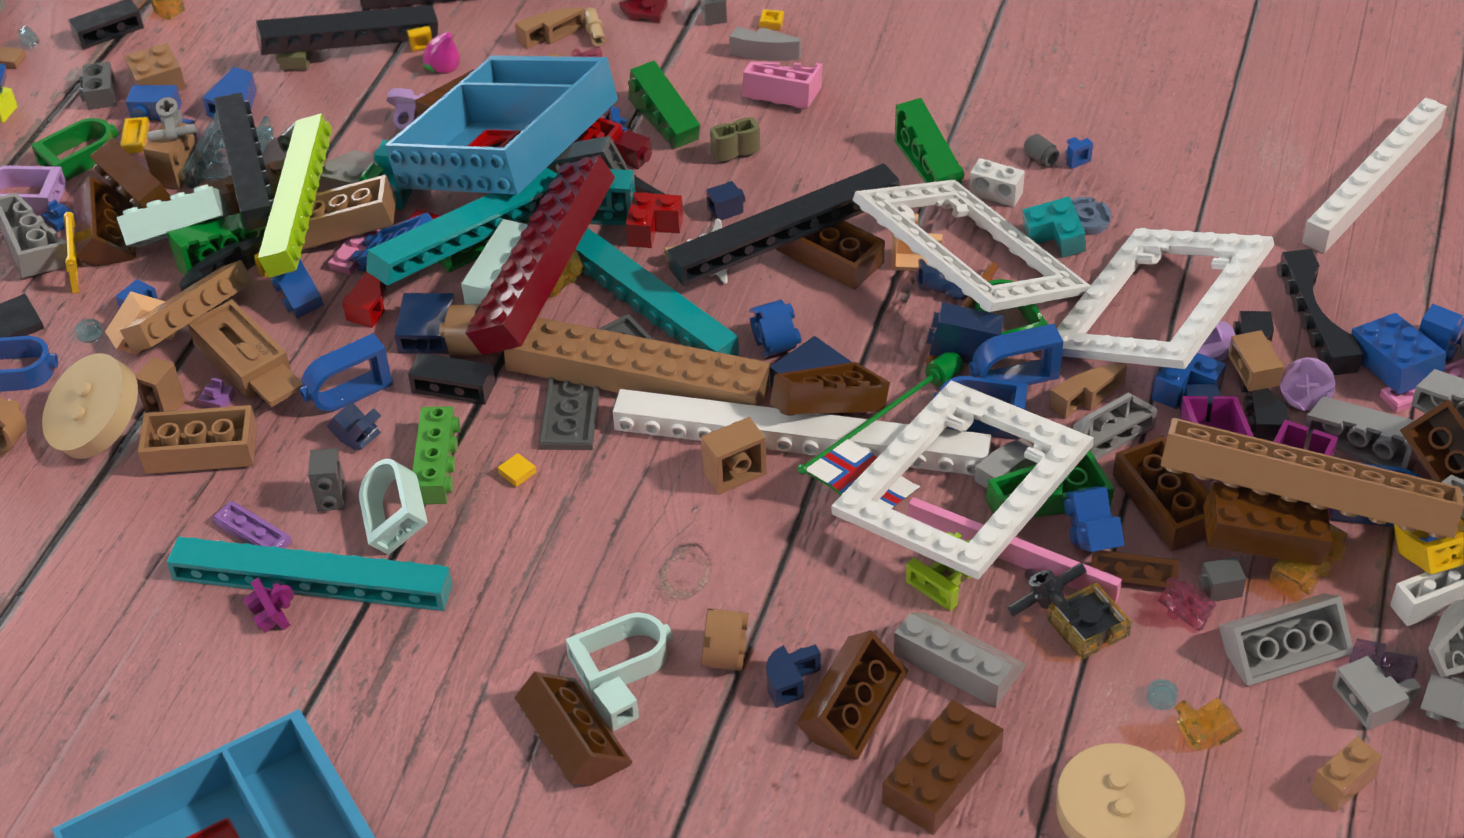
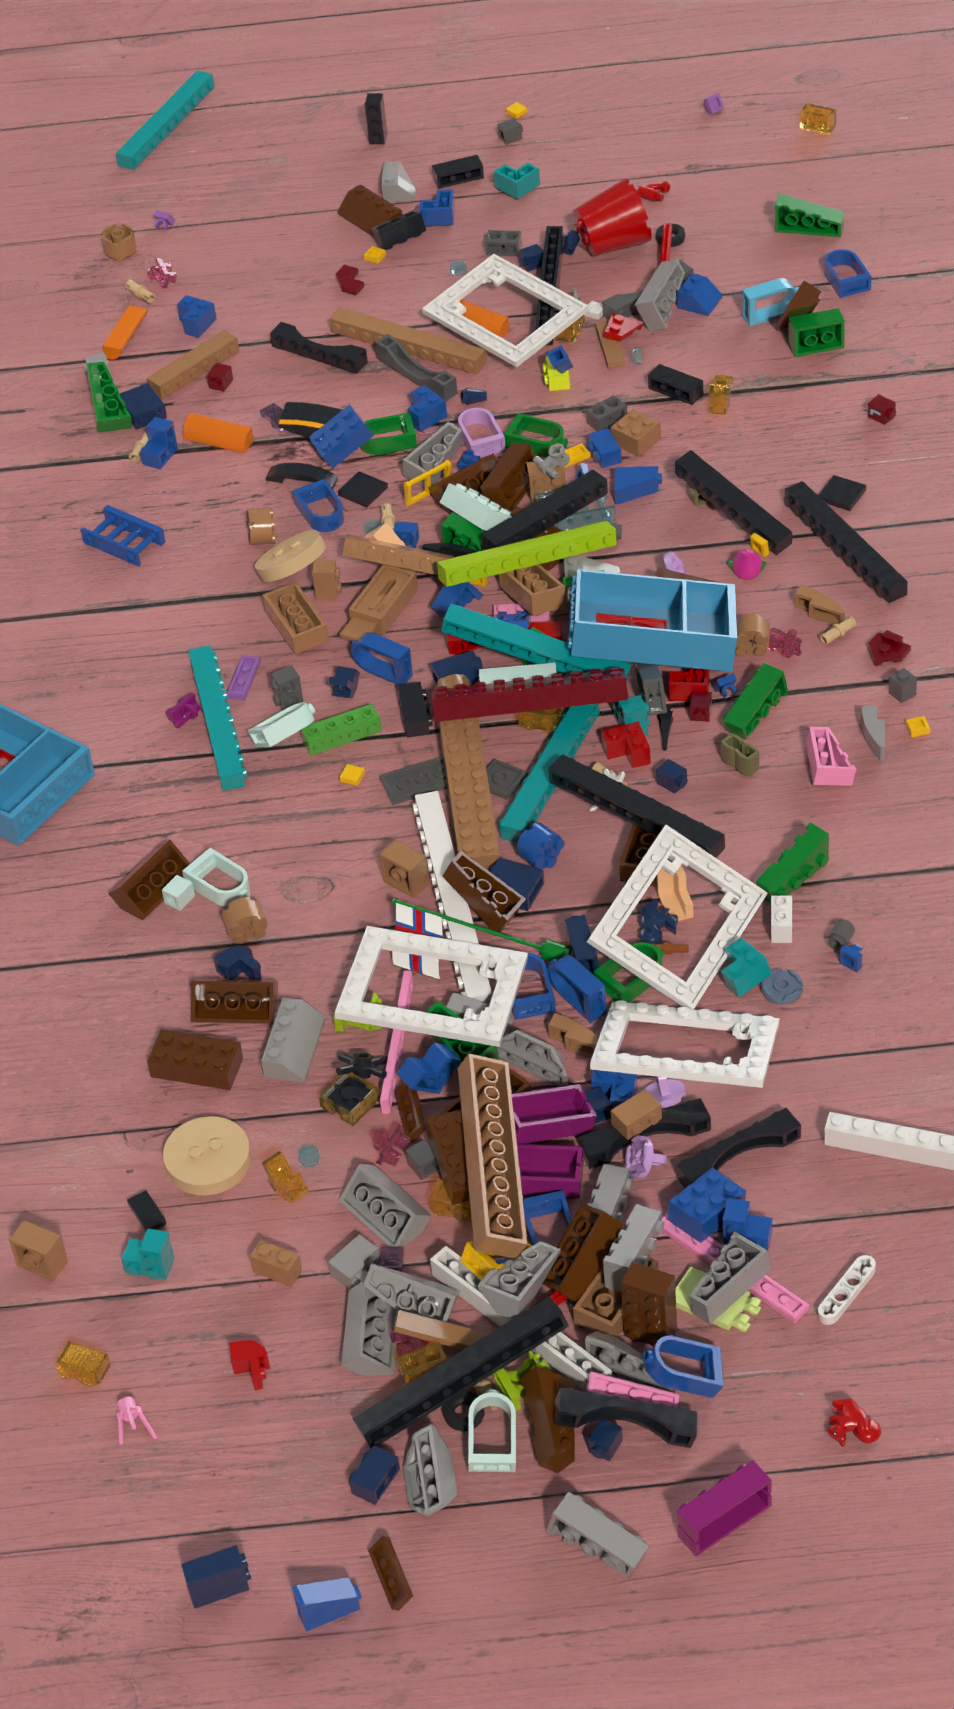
camera: 70 degrees right, 0 degrees up
(90, 310) = (387, 515): none -> tan pin
(216, 395) = (342, 611): medium lavender tile -> none

